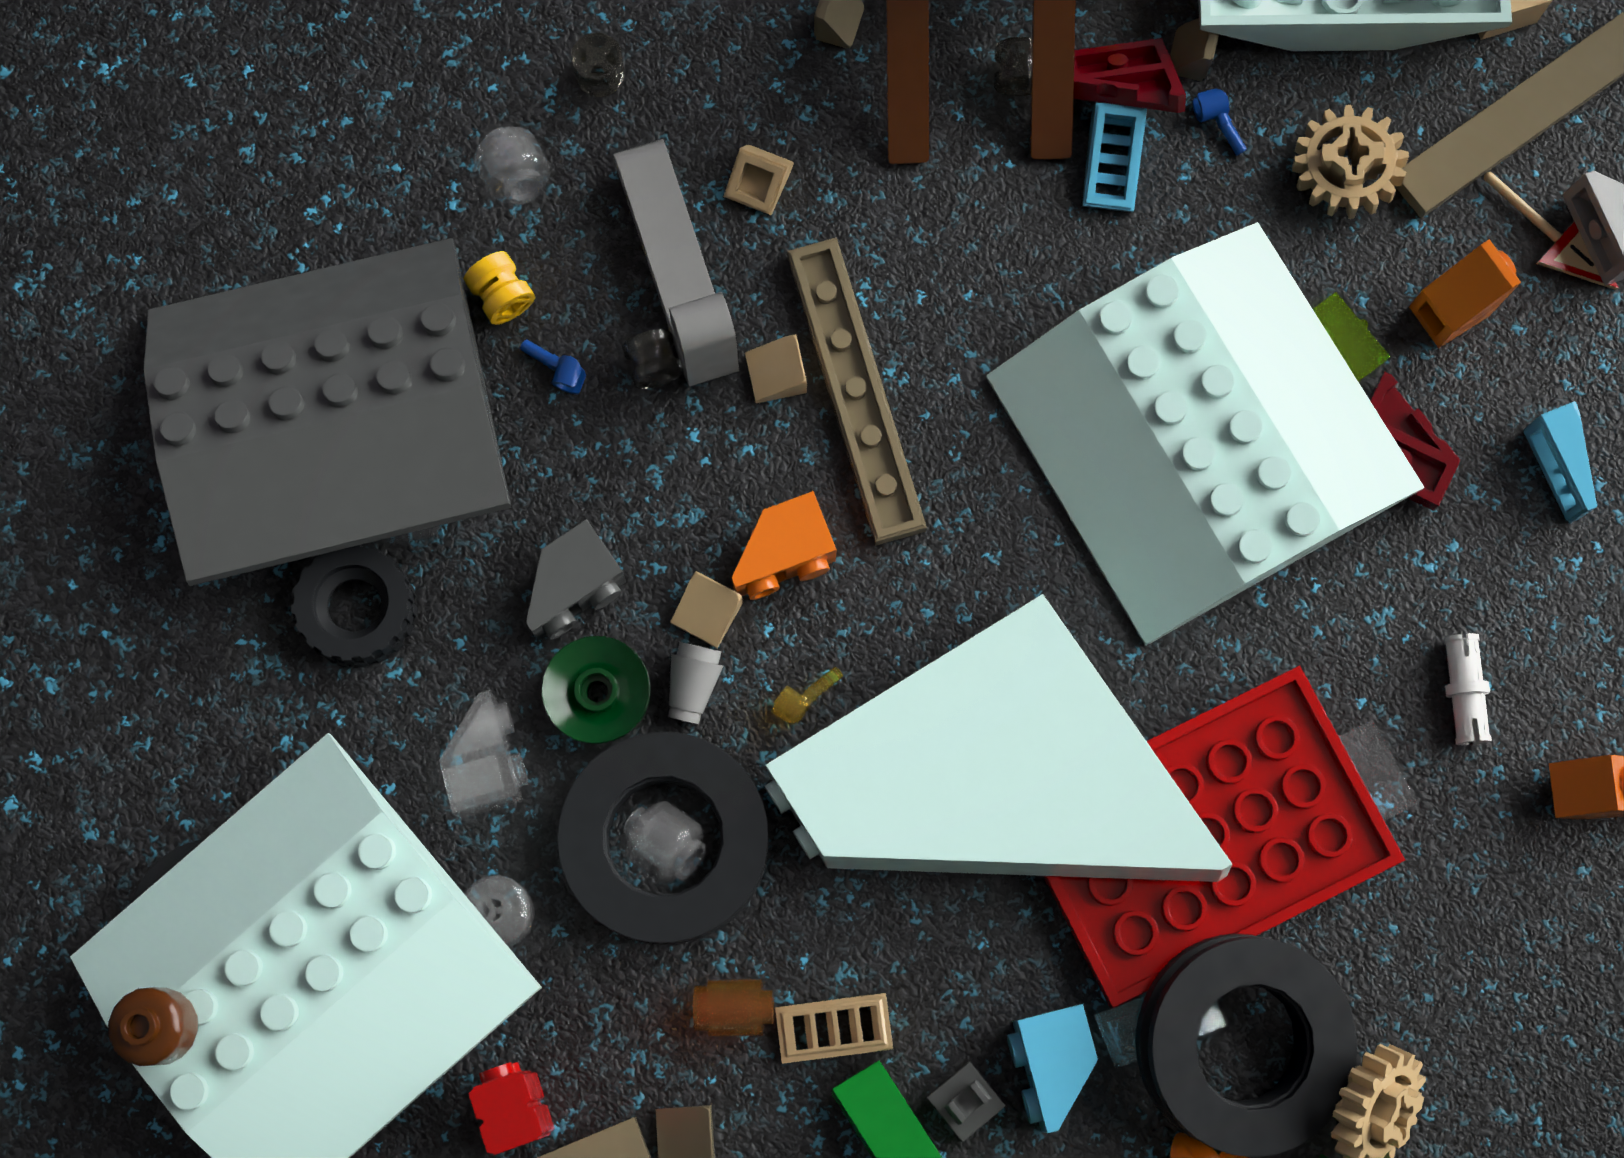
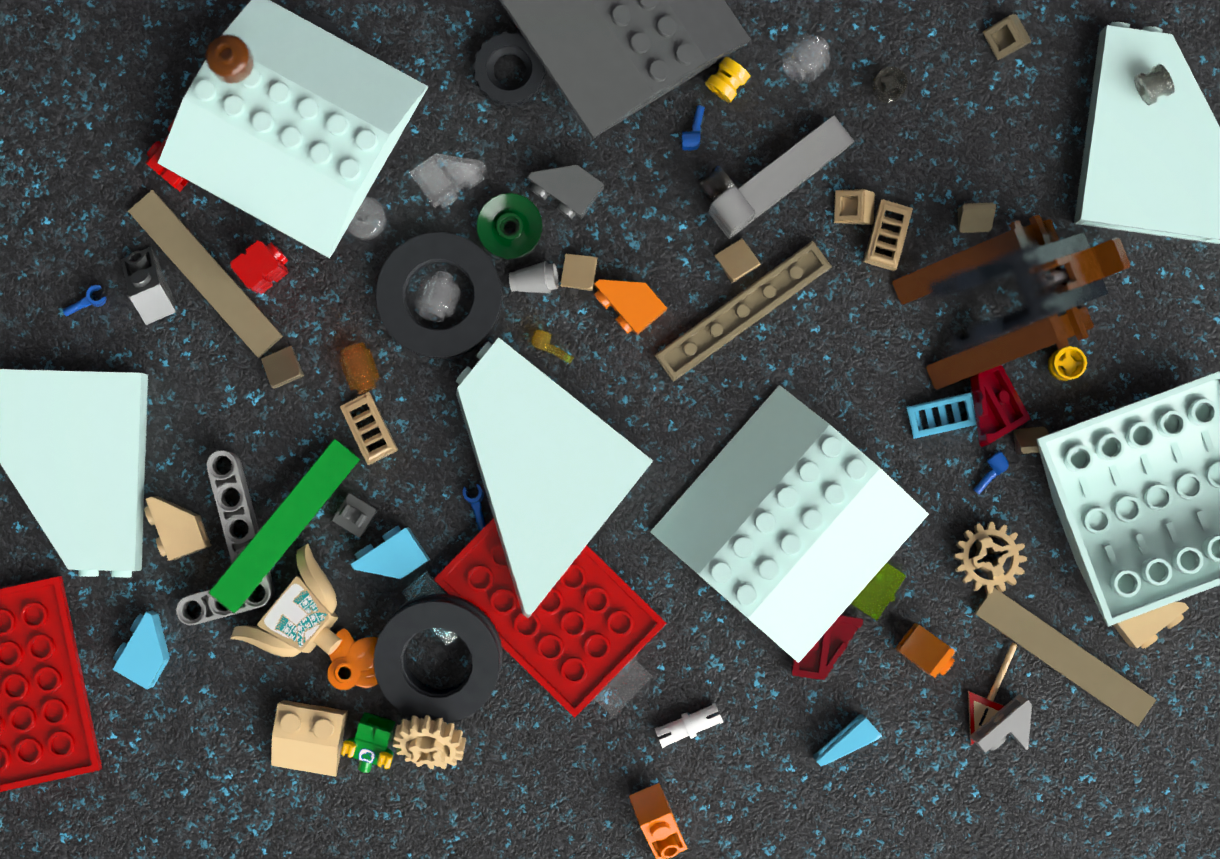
camera: 70 degrees right, 10 degrees up
(839, 177) = (881, 260): none -> tan slope
(1018, 900) = (476, 506): none -> blue hand

